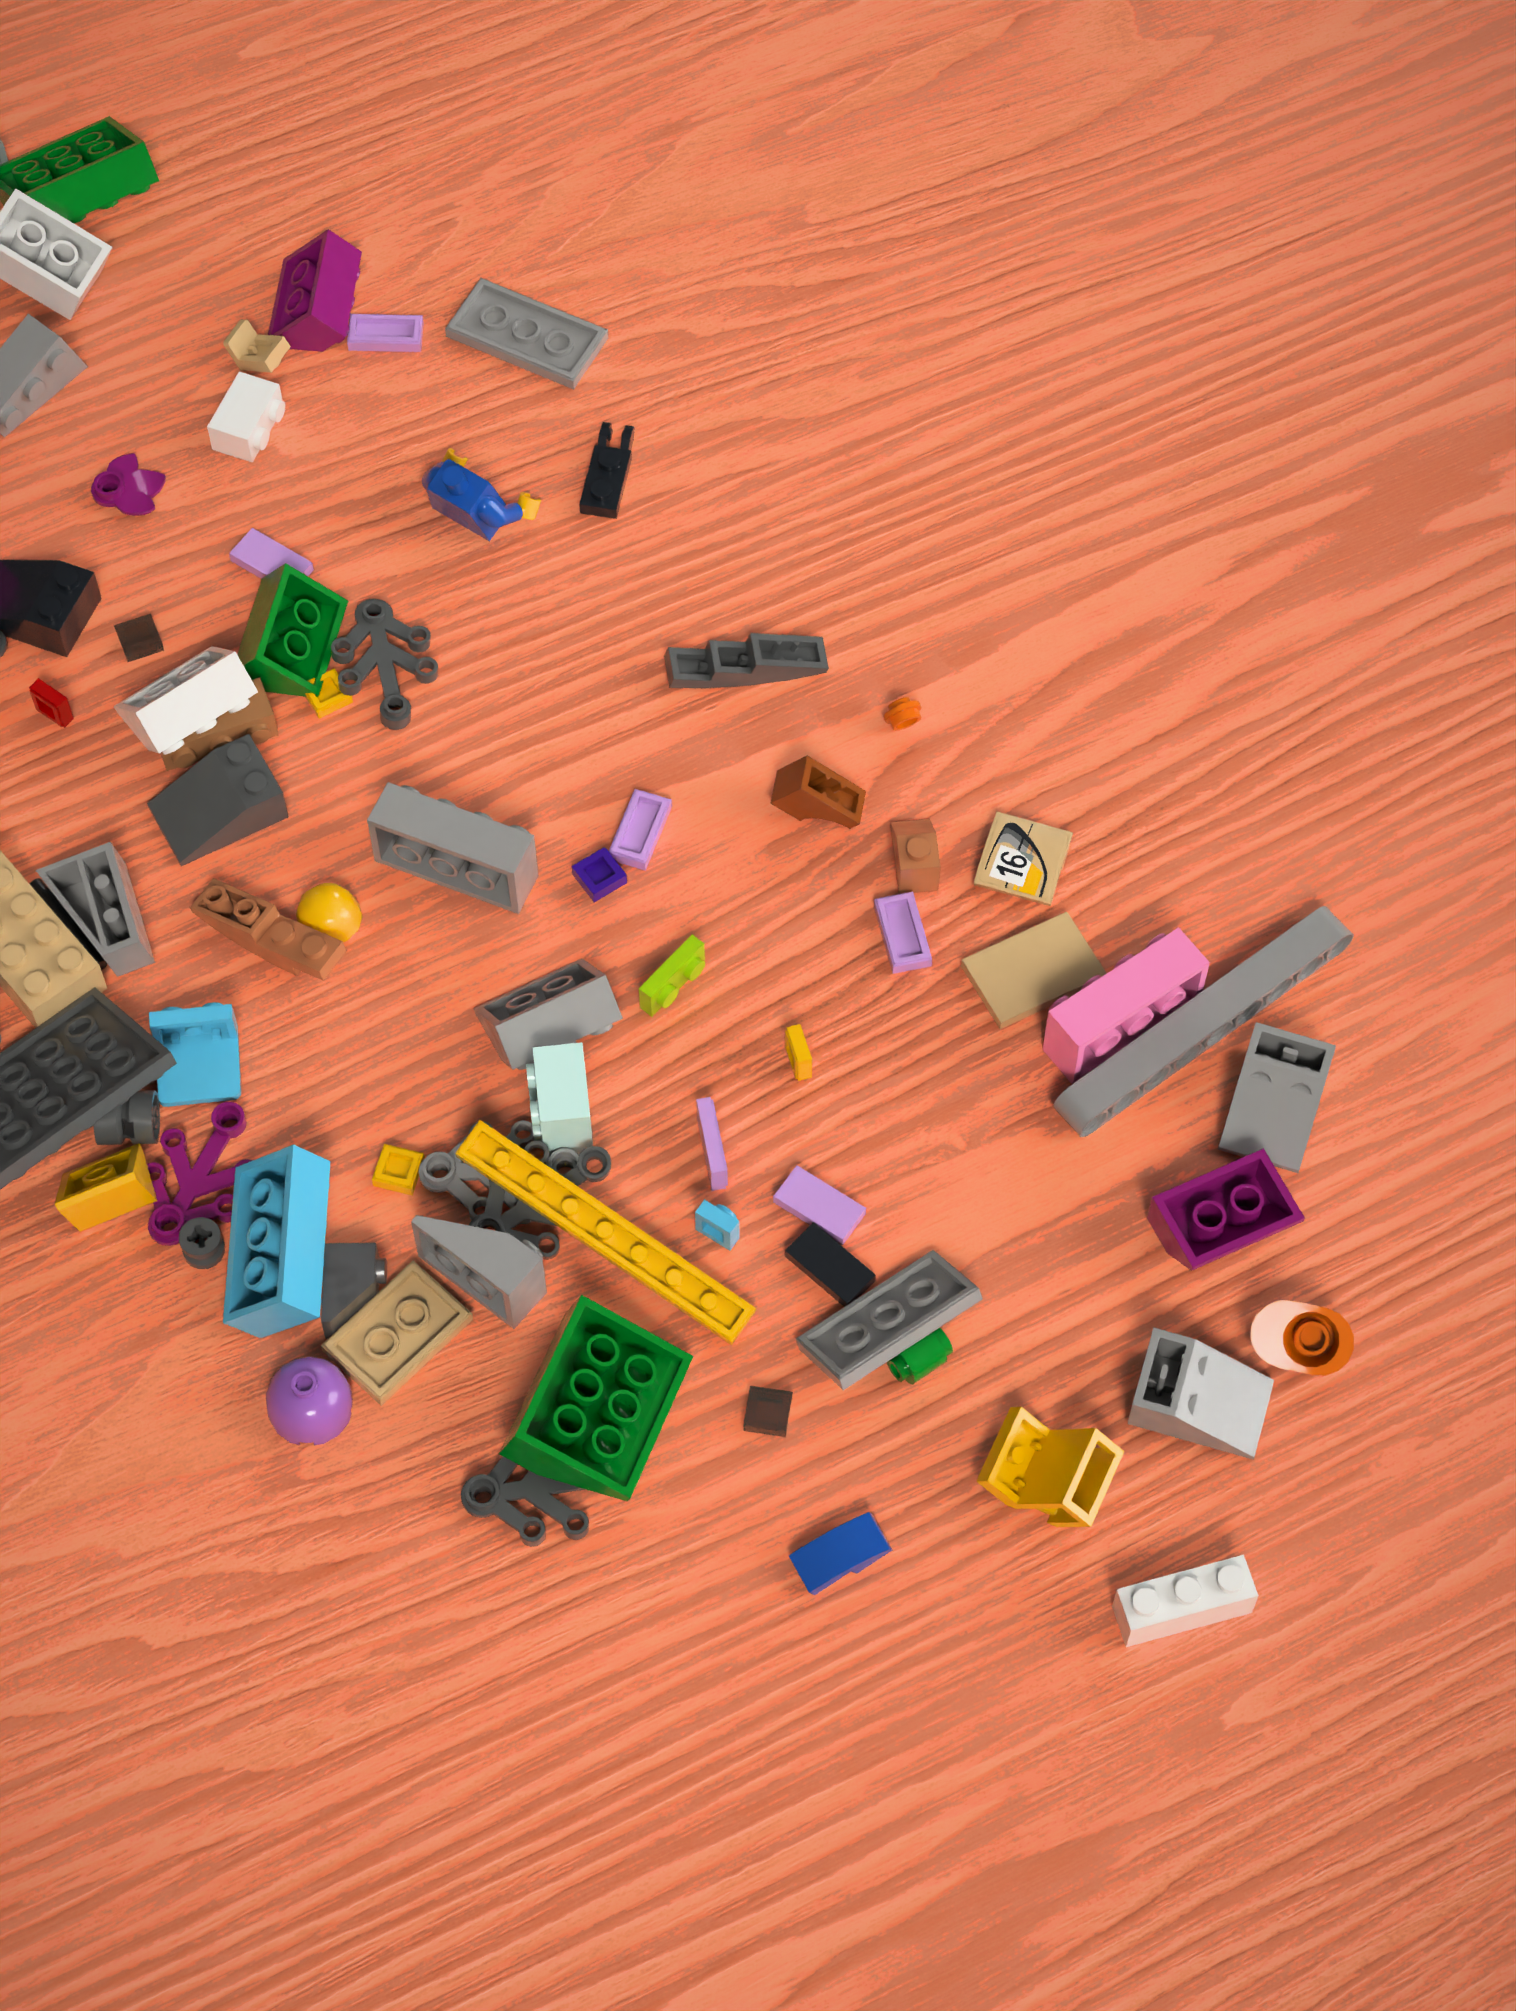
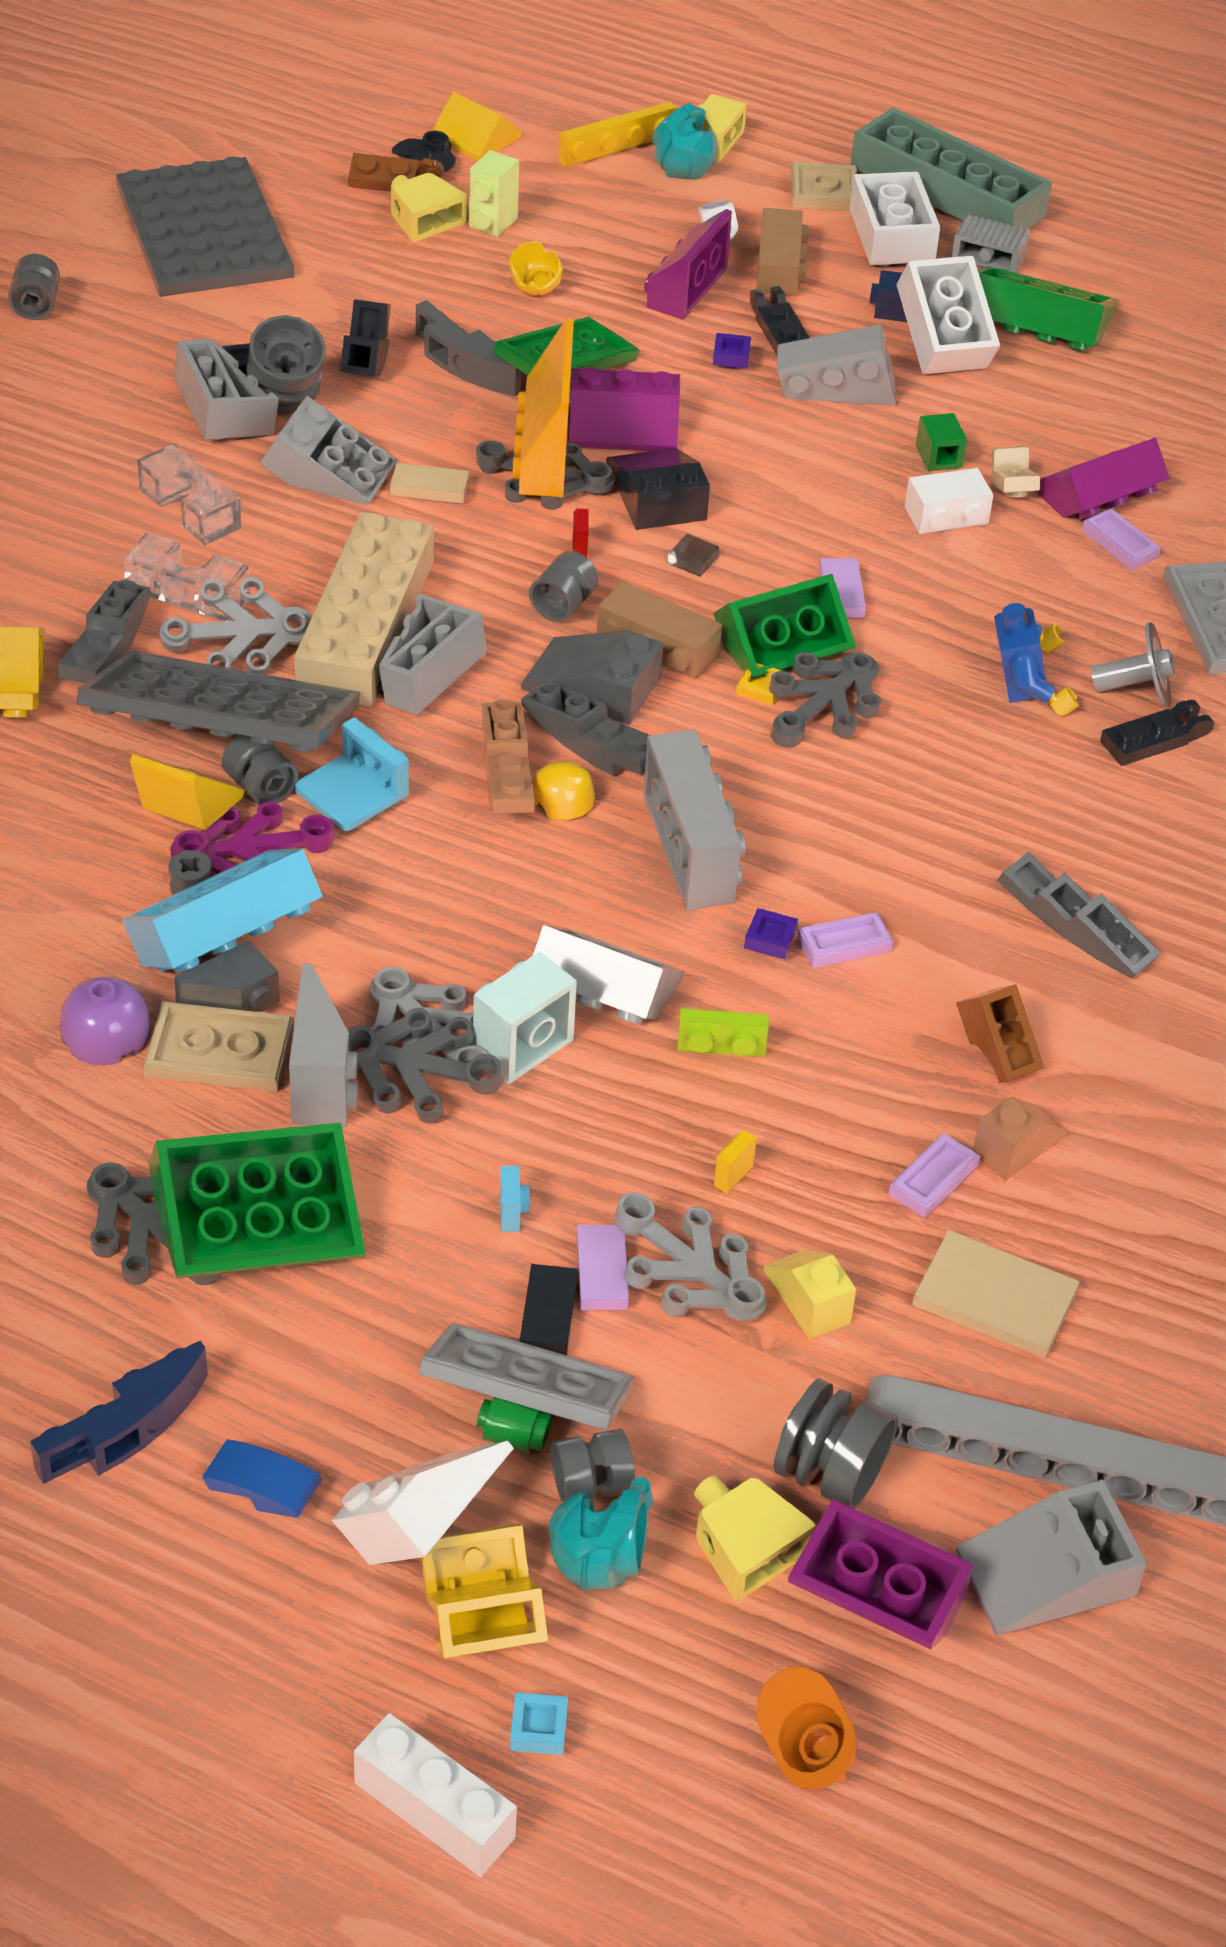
camera: 50 degrees right, 15 degrees down
(105, 757) = (563, 586): none -> dark grey wheel
(130, 486) = (815, 476): magenta plate -> none
(172, 370) = (941, 442): none -> green brick
(187, 699) = (650, 587): white slope -> none
(288, 852) = (586, 730): none -> dark grey slope
(397, 1169) = (367, 960): yellow tile -> none
(546, 435) = (1153, 665): none -> light grey piece
(606, 1232) = (428, 1127): yellow tile -> none
(712, 1143) = (585, 1150): lavender tile -> none
(717, 1598) = (141, 1411): none -> dark blue slope
(768, 1411) = (362, 1344): clear smoke tile -> none
(867, 1141) = (736, 1295): none -> light grey plant
(903, 713) = (1147, 1048): orange plate -> none
(944, 1081) = (814, 1290): none -> light yellow slope
(952, 1456) = (414, 1507): none -> white slope
(997, 1332) = (597, 1466): none -> dark grey wheel
(1023, 858) = (1099, 1218): slope -> none
(1071, 1373) = (601, 1546): none -> teal helmet
(1100, 1162) = (827, 1440): none -> dark grey wheel
(1119, 1267) = (749, 1533): none -> light yellow torso
(1123, 1003) = (1020, 1361): bright pink brick -> none
(1171, 1500) = (539, 1723): none -> medium azure plate
(1200, 1395) = (669, 1677): slope -> none

